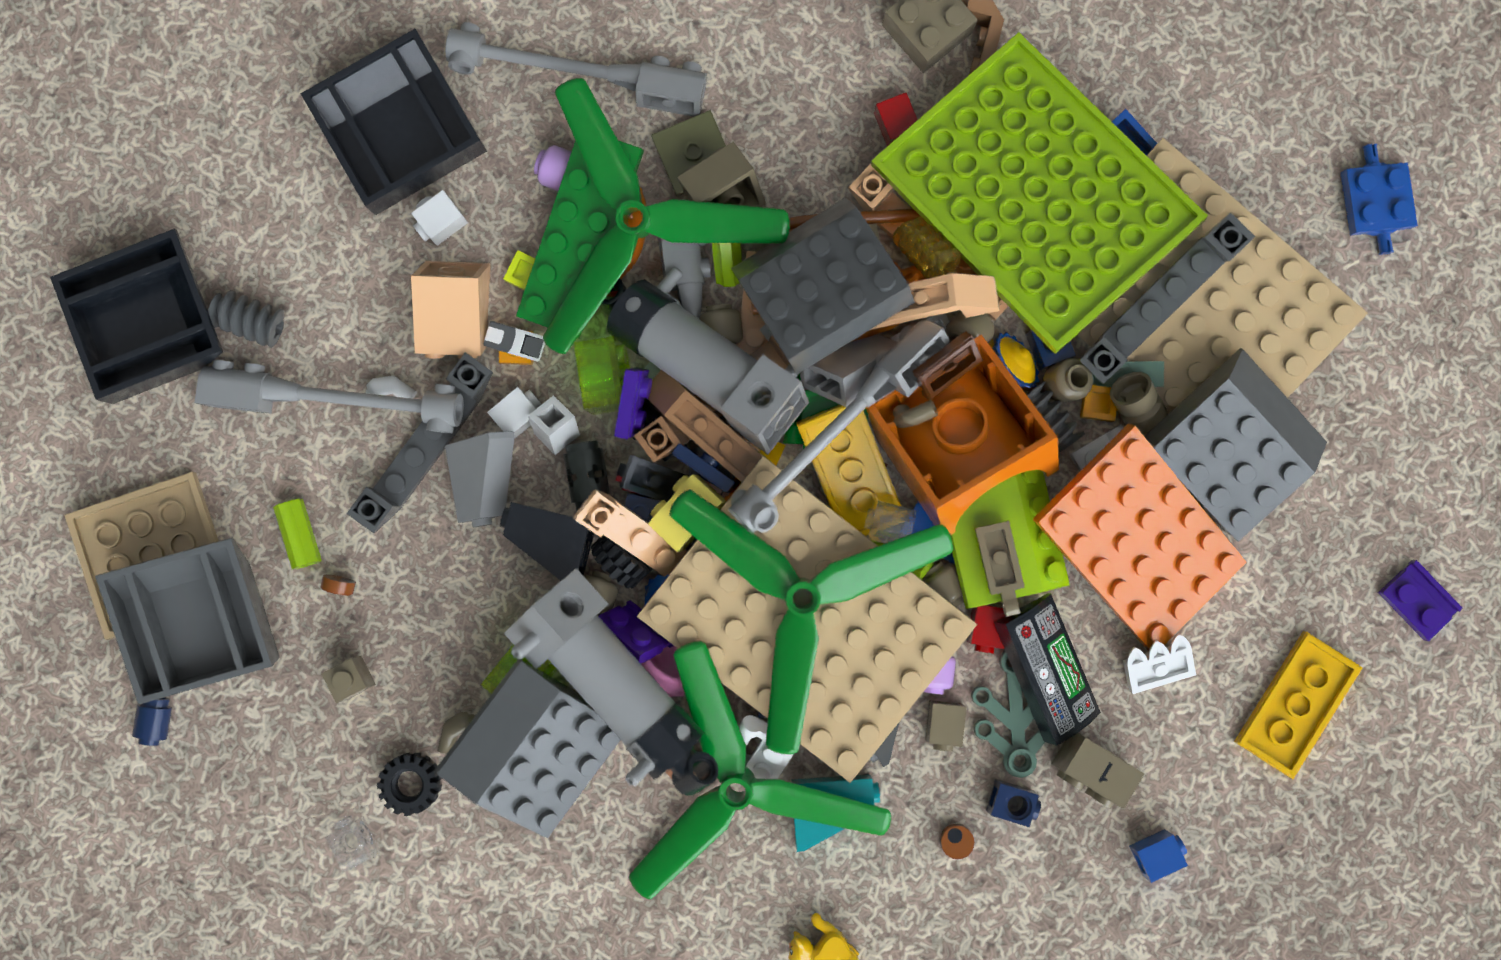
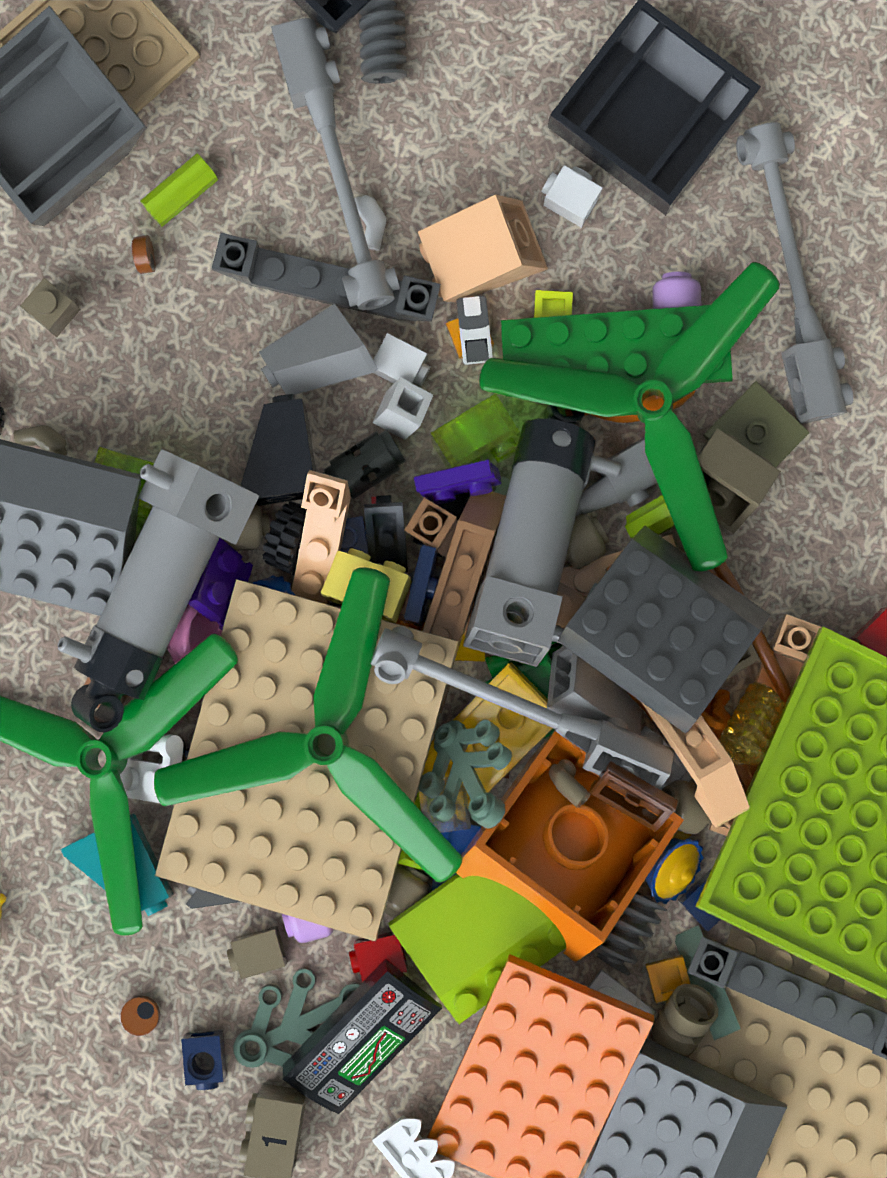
camera: 65 degrees right, 0 degrees up
(842, 497) = (450, 744): none -> sand green plant
(1000, 564) = (449, 940): dark tan plate -> none
(1068, 380) = (677, 934): dark tan head -> none

